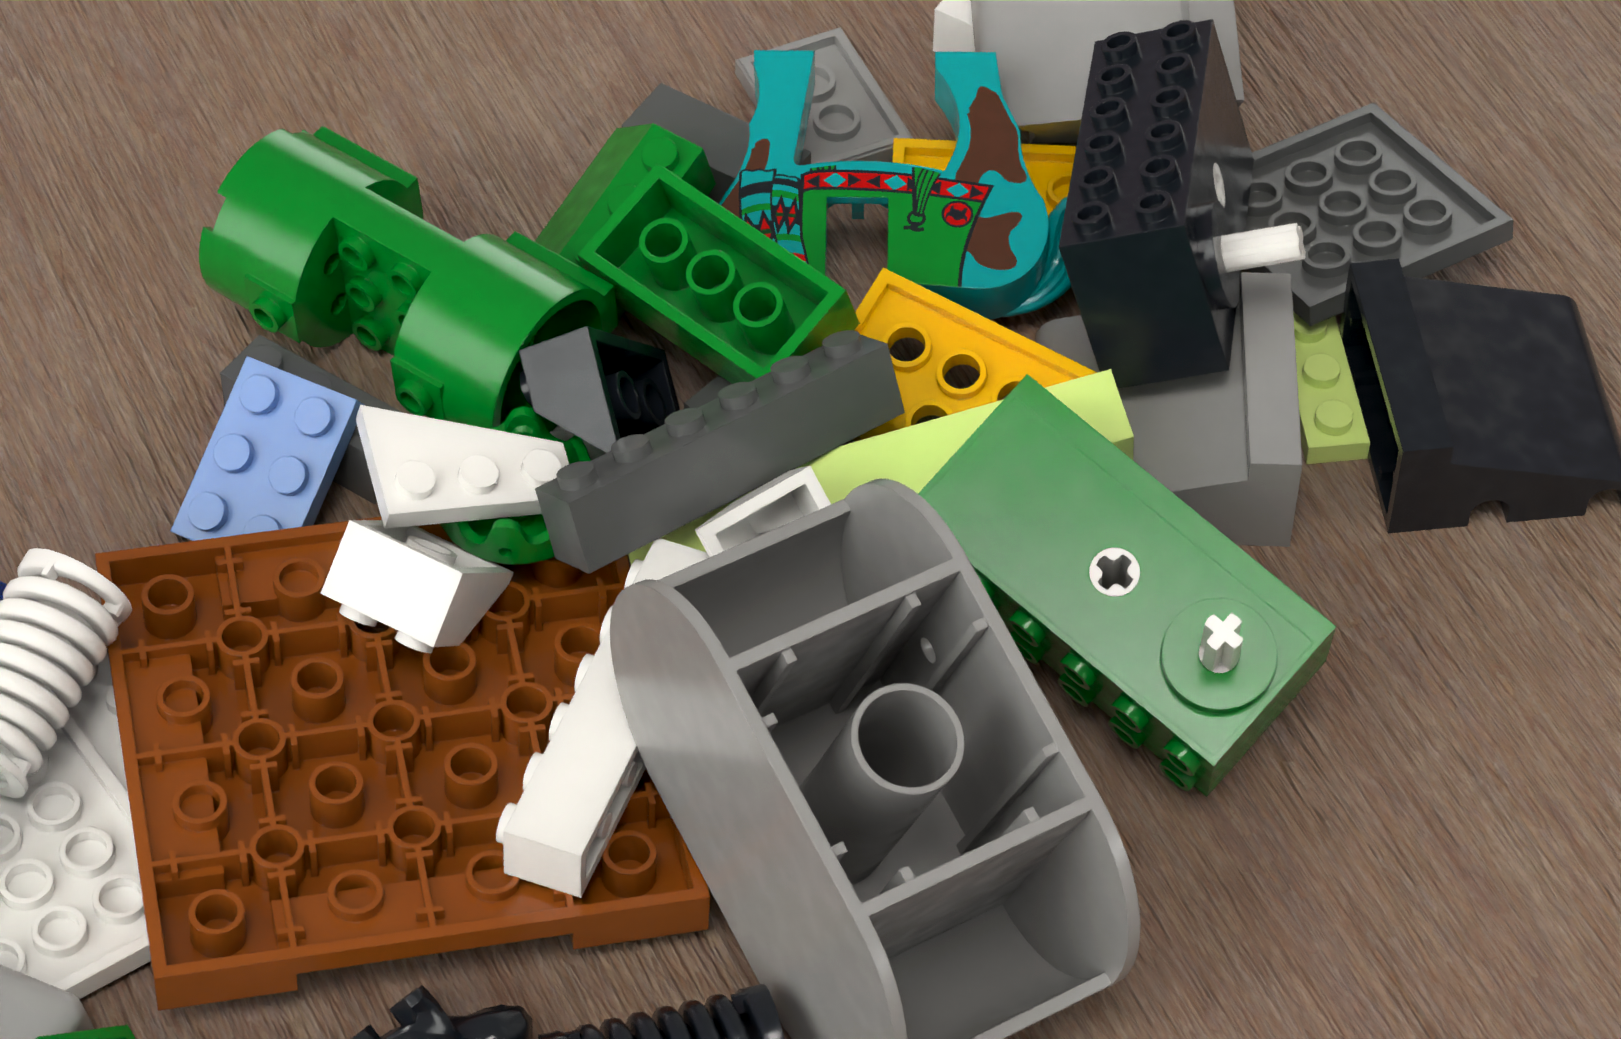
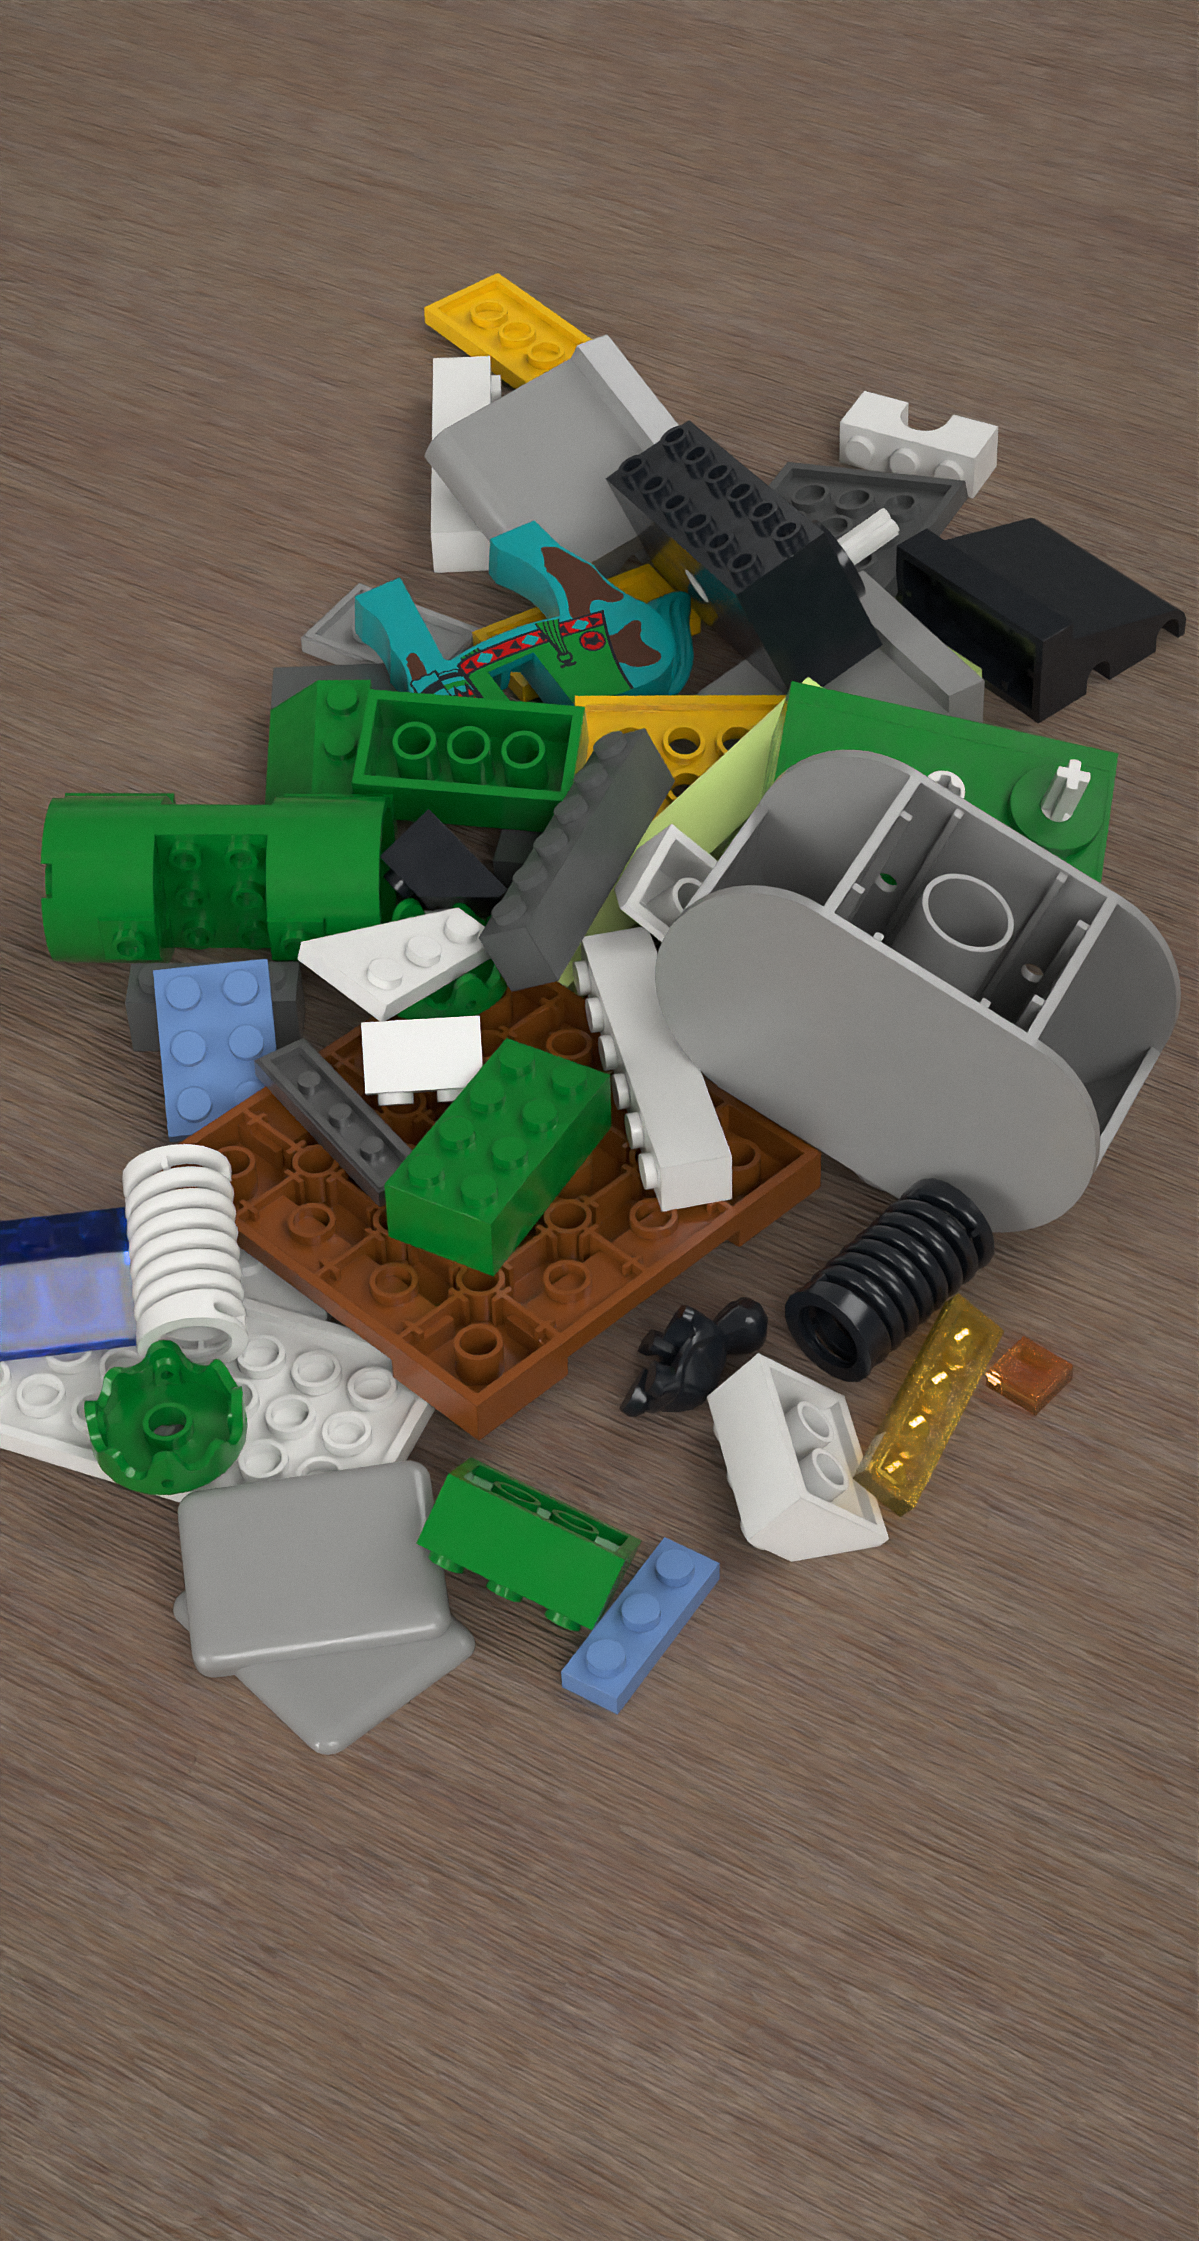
camera: 30 degrees left, 5 degrees down
(293, 610) = (334, 1115): none -> flat silver tile
(385, 729) = (498, 1156): none -> green brick
(1551, 183) = (879, 439): none -> white arch

